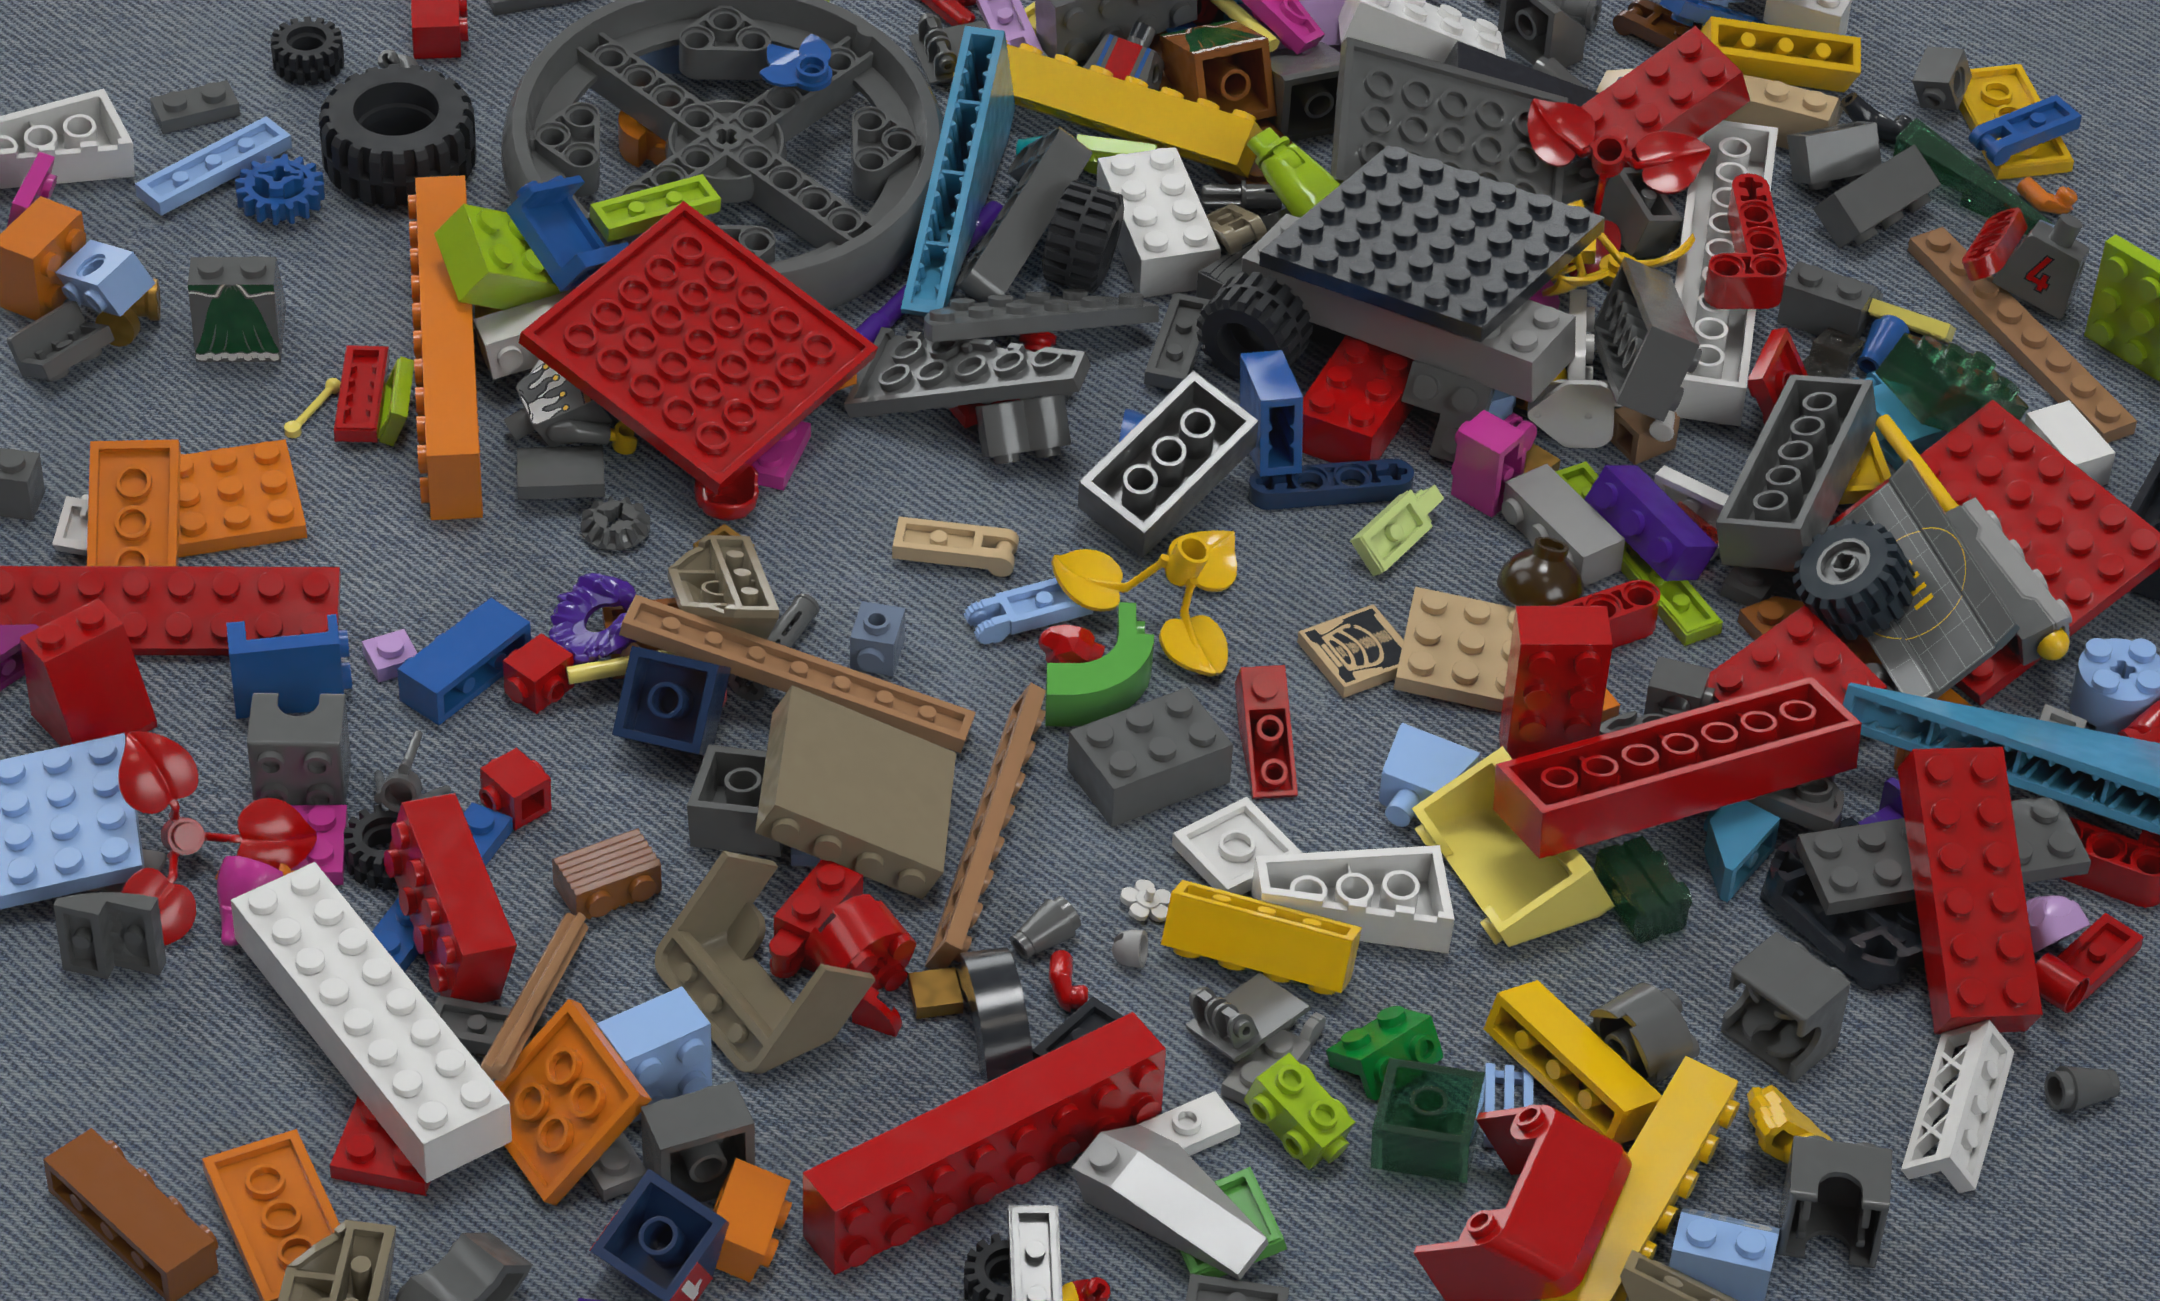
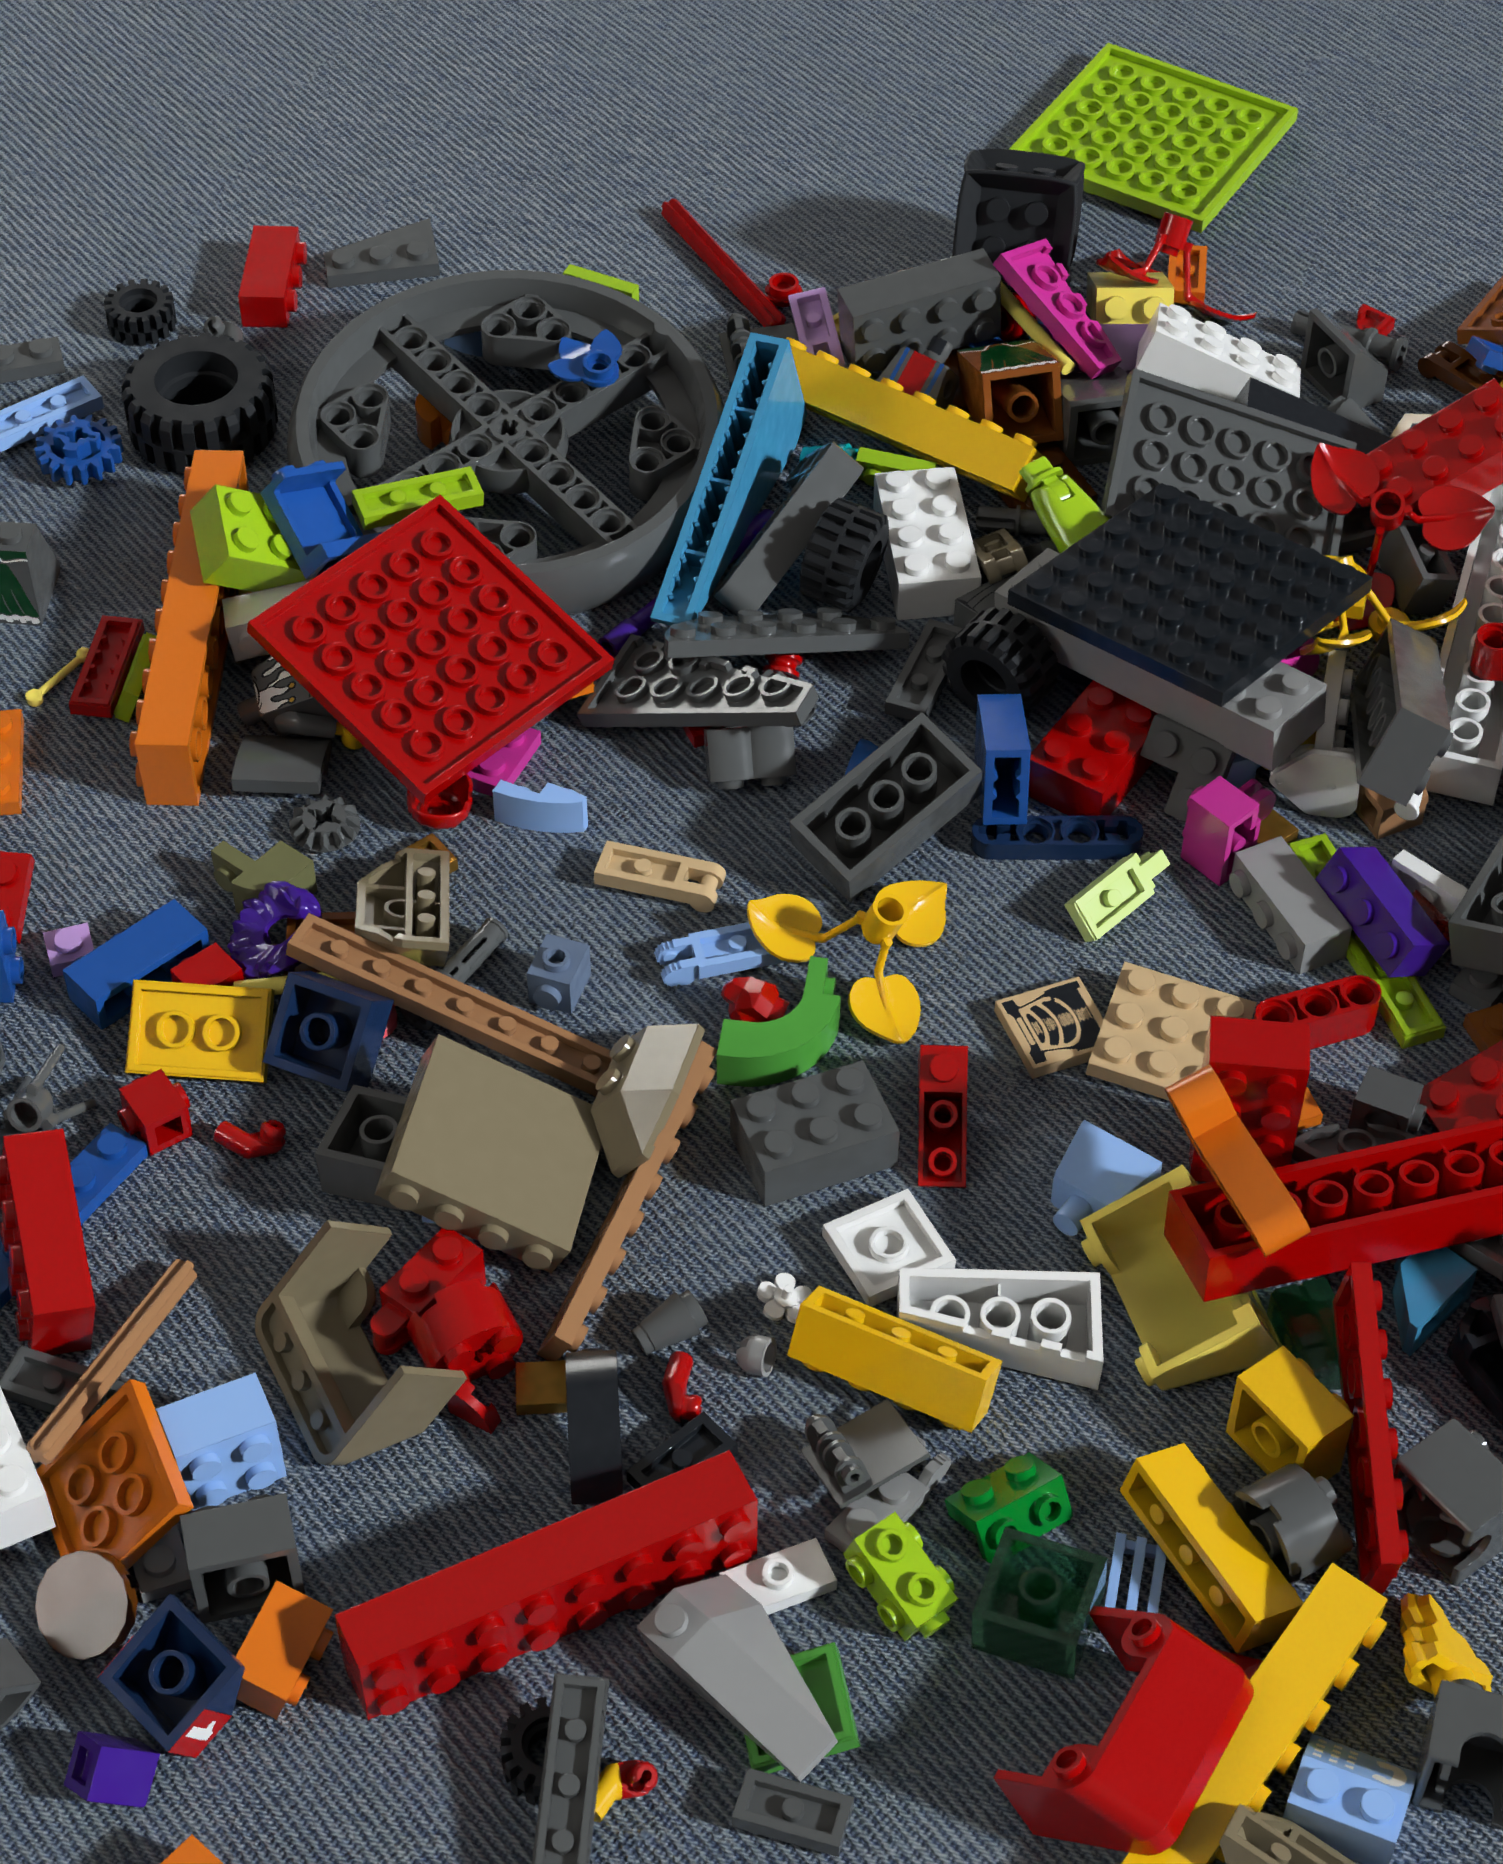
camera: 10 degrees right, 5 degrees up
(543, 713) = (199, 1030): none -> yellow tile
(556, 575) = (247, 877): none -> olive brick
(558, 1199) = (85, 1604): none -> tile
(608, 874) = (227, 1219): dark orange brick -> none
(612, 812) = (251, 1145): none -> red arm
(831, 496) = (548, 811): none -> light blue slope
(986, 727) = (642, 1091): none -> dark tan wedge
(1541, 575) = (1258, 963): dark brown piece -> none
(1554, 727) = (1236, 1161): none -> orange beam
(1626, 945) = (1289, 1417): none -> yellow brick
(1699, 945) = (1370, 1442): none -> red plate

